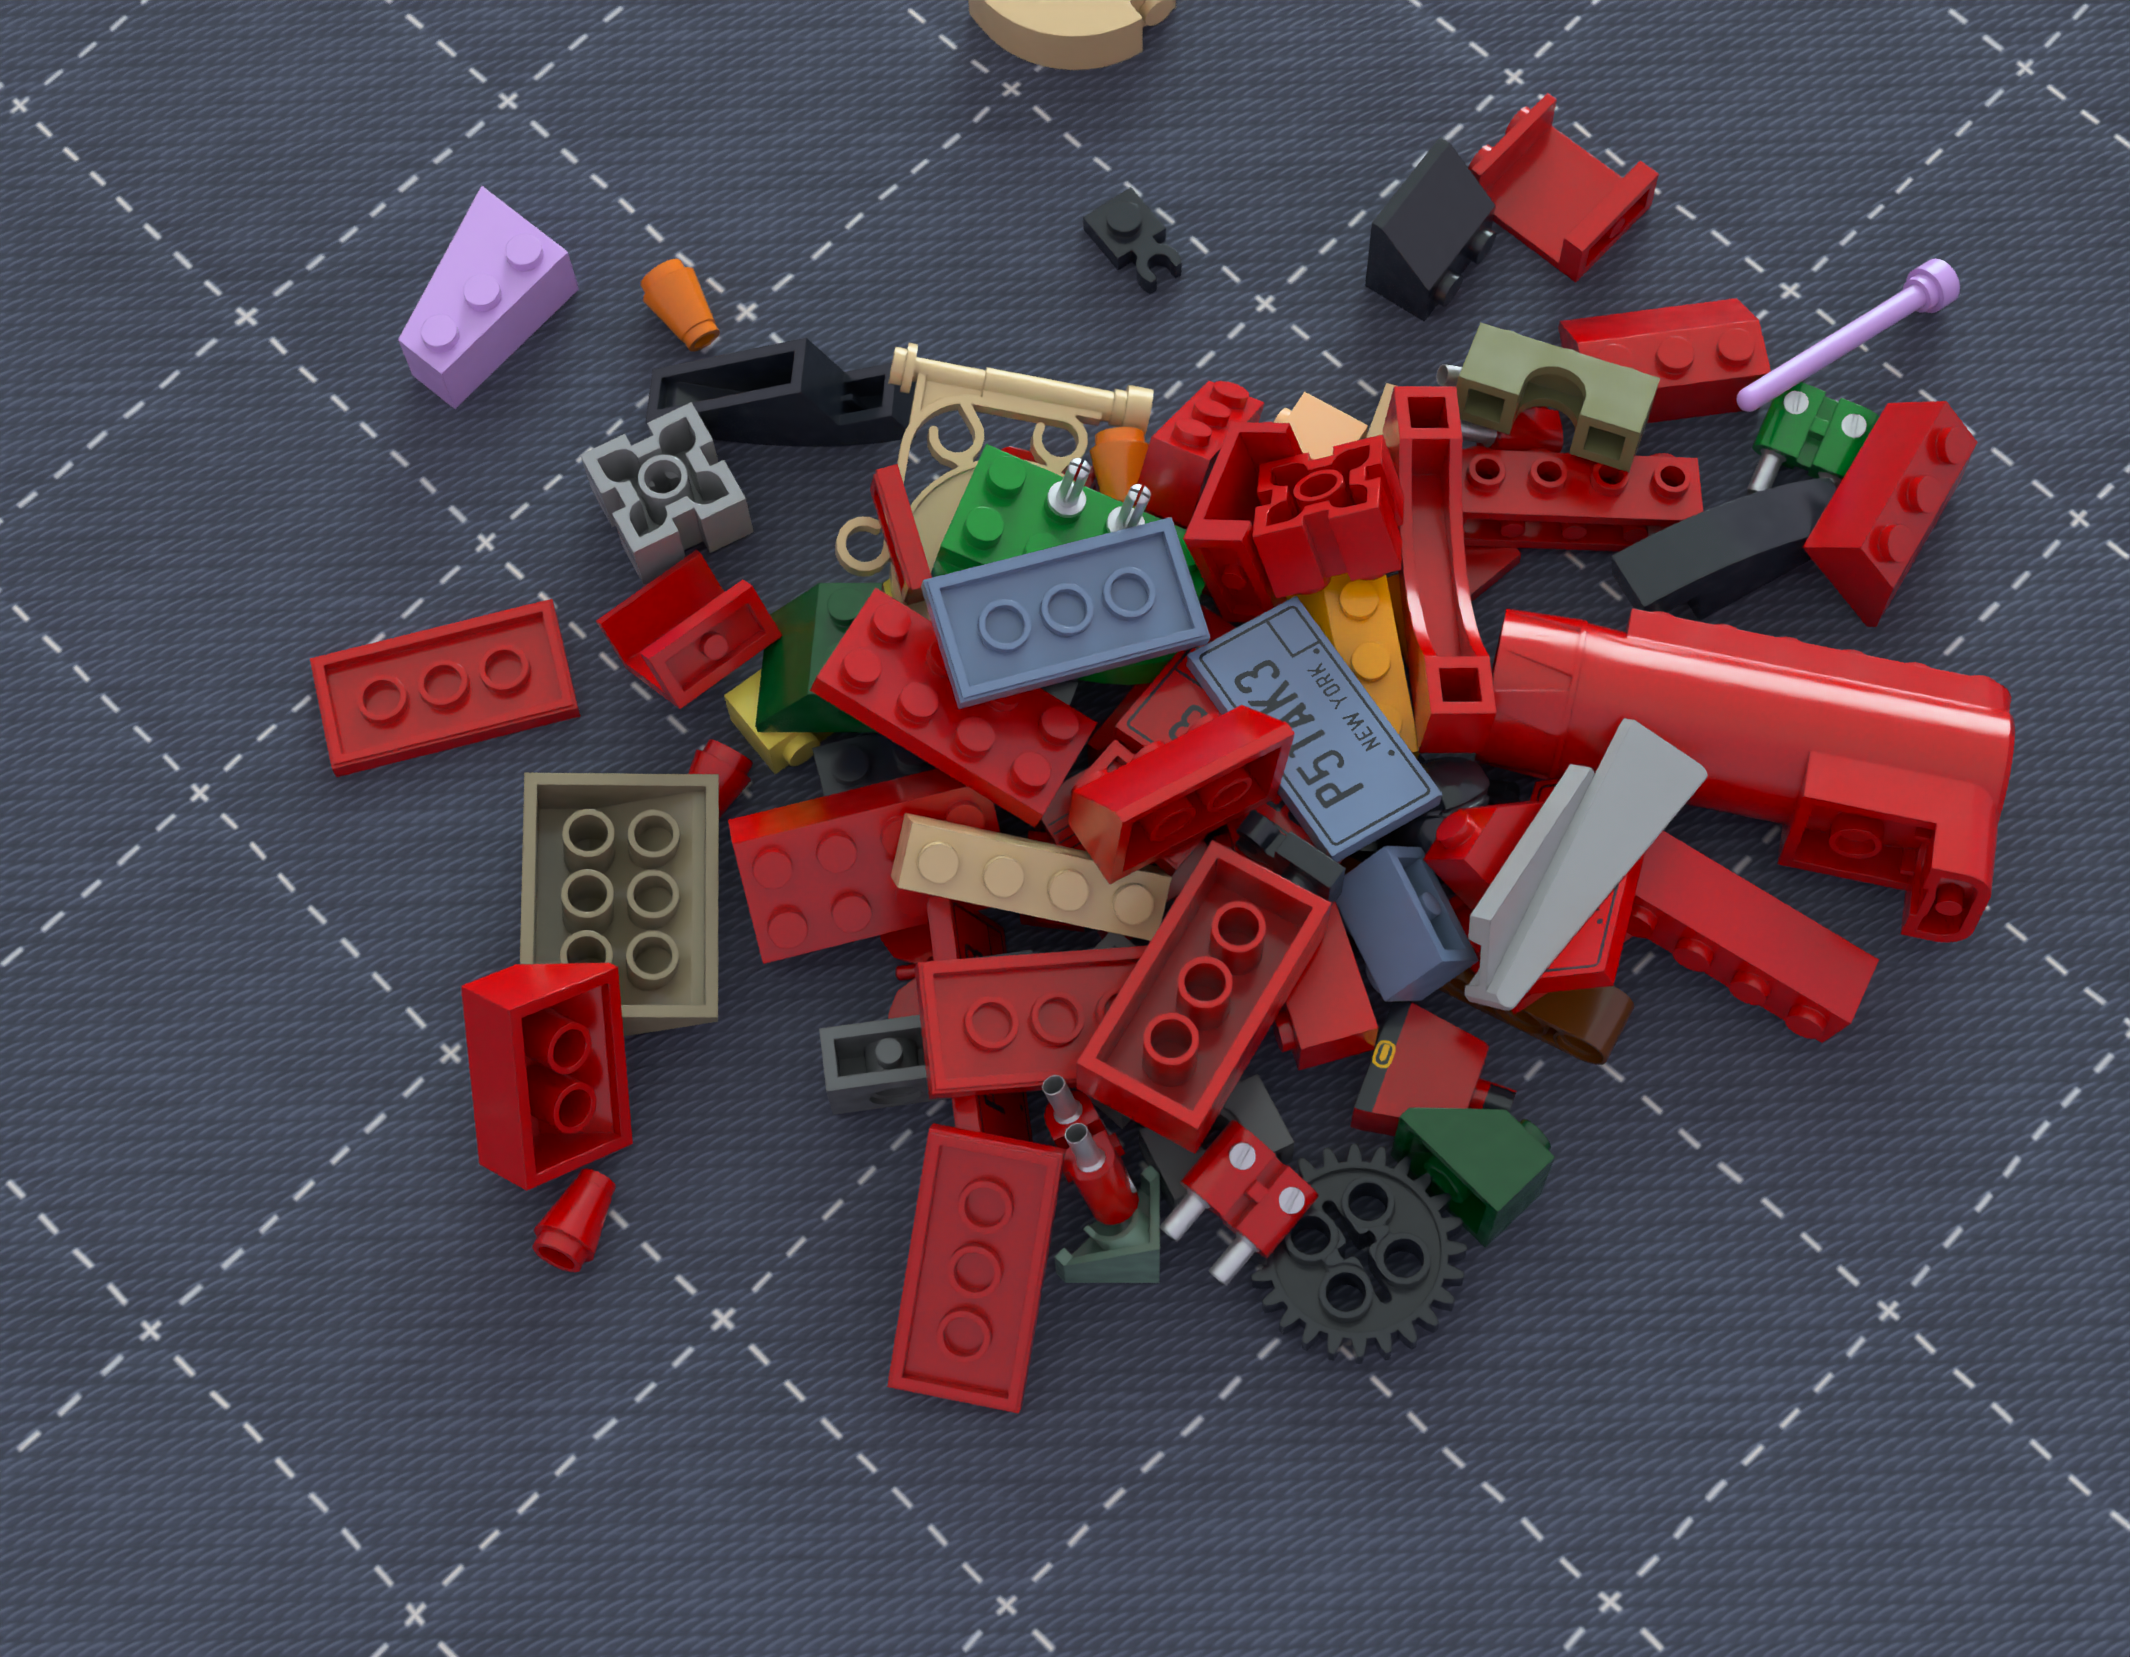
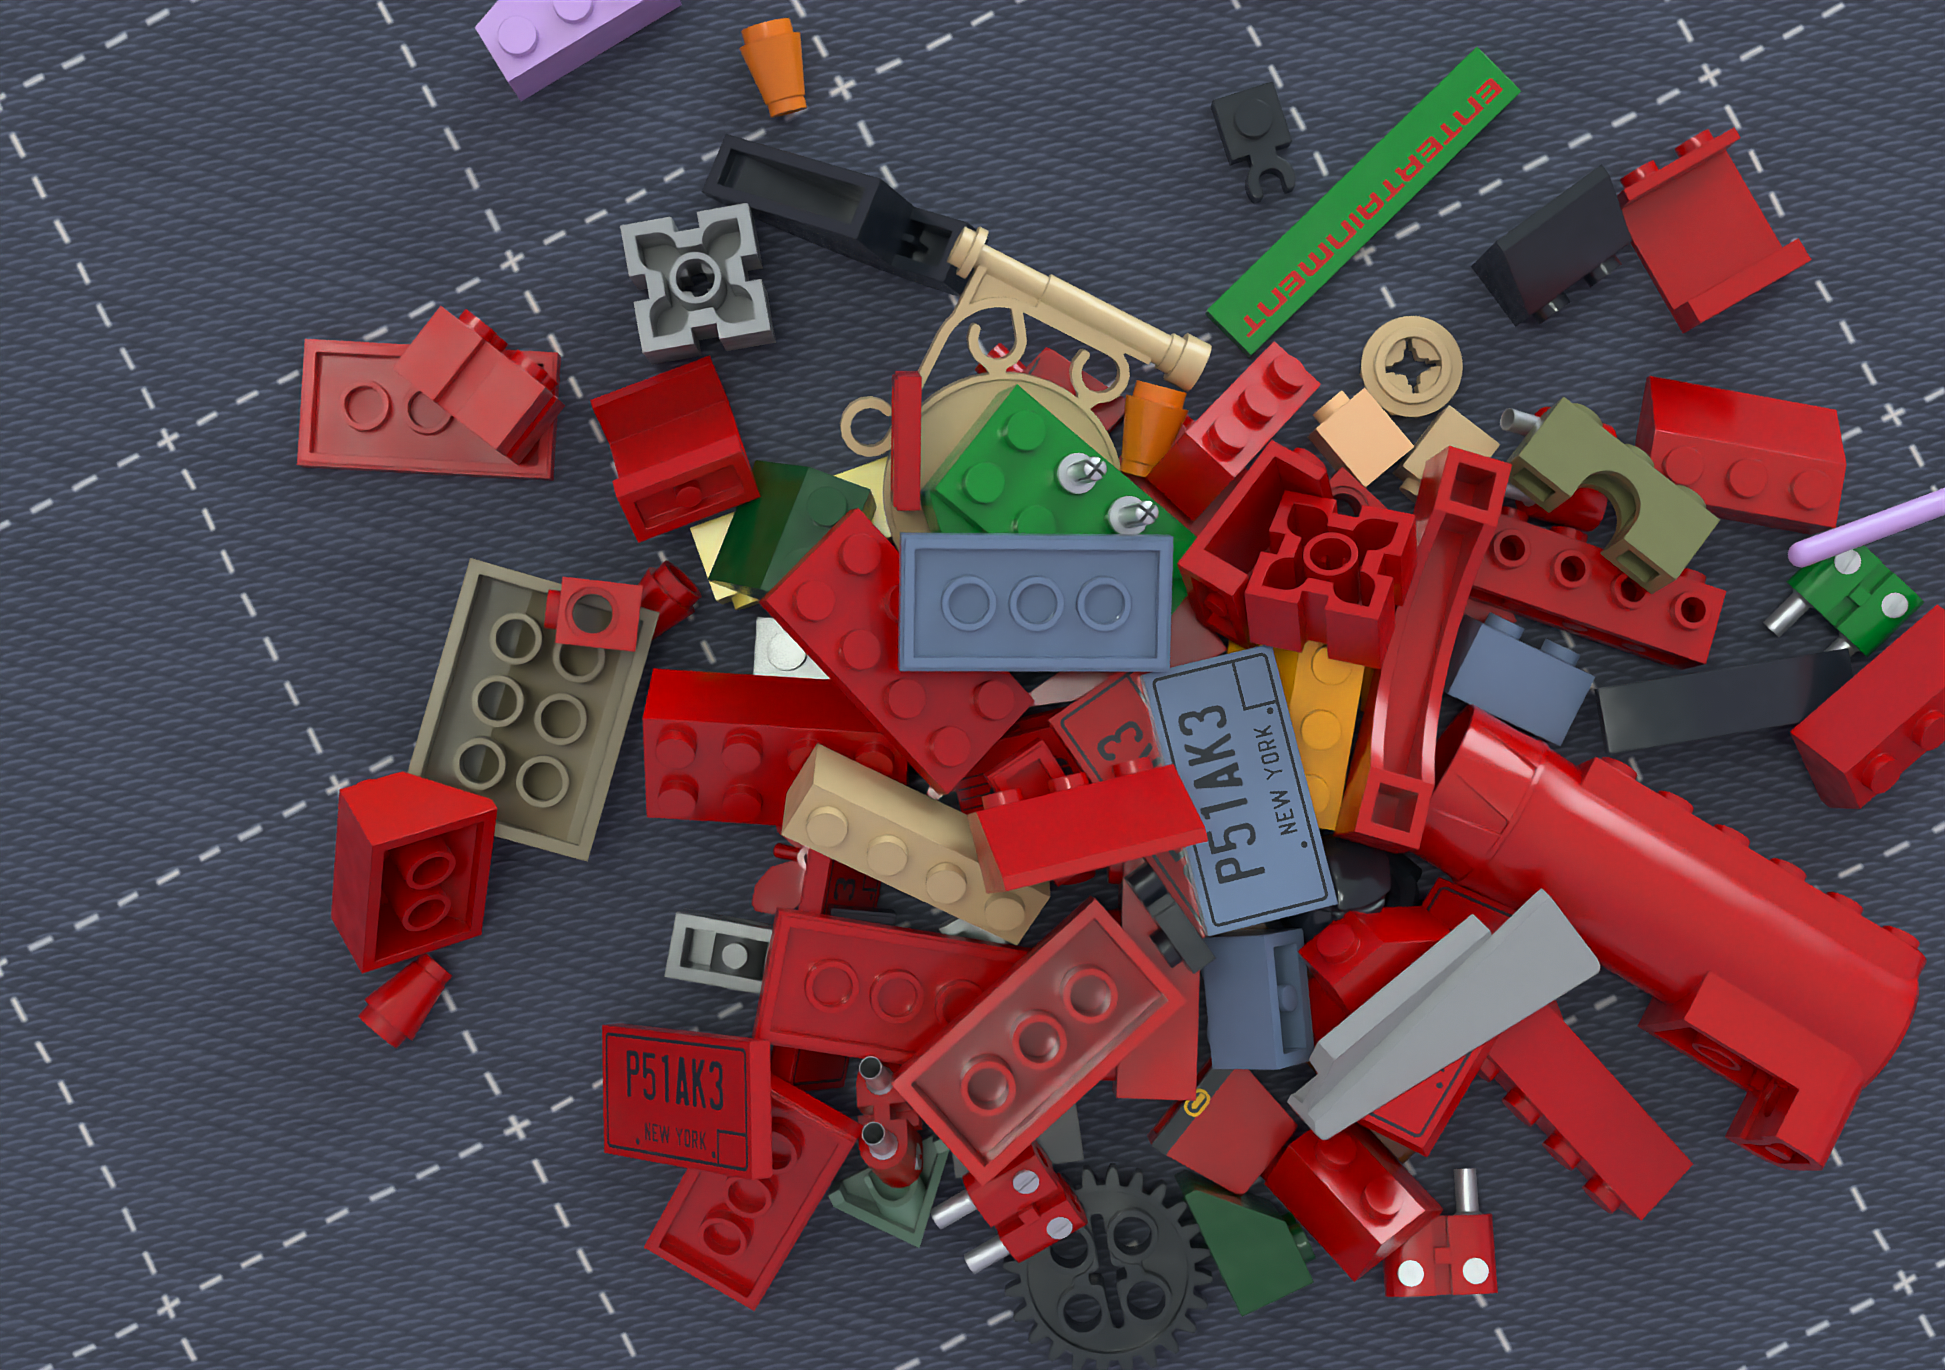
camera: 15 degrees right, 20 degrees up
(490, 623) = (469, 377): none -> brick
(672, 755) = (625, 605): none -> red brick
(884, 1190) = (688, 1099): none -> red tile
(1247, 259) = (1362, 202): none -> green tile
(1351, 355) = (1428, 343): none -> tan gear
(1537, 581) = (1516, 680): none -> sand blue brick
(1561, 1078) = (1351, 1196): none -> red slope
(1673, 1133) = (1449, 1253): none -> red piece

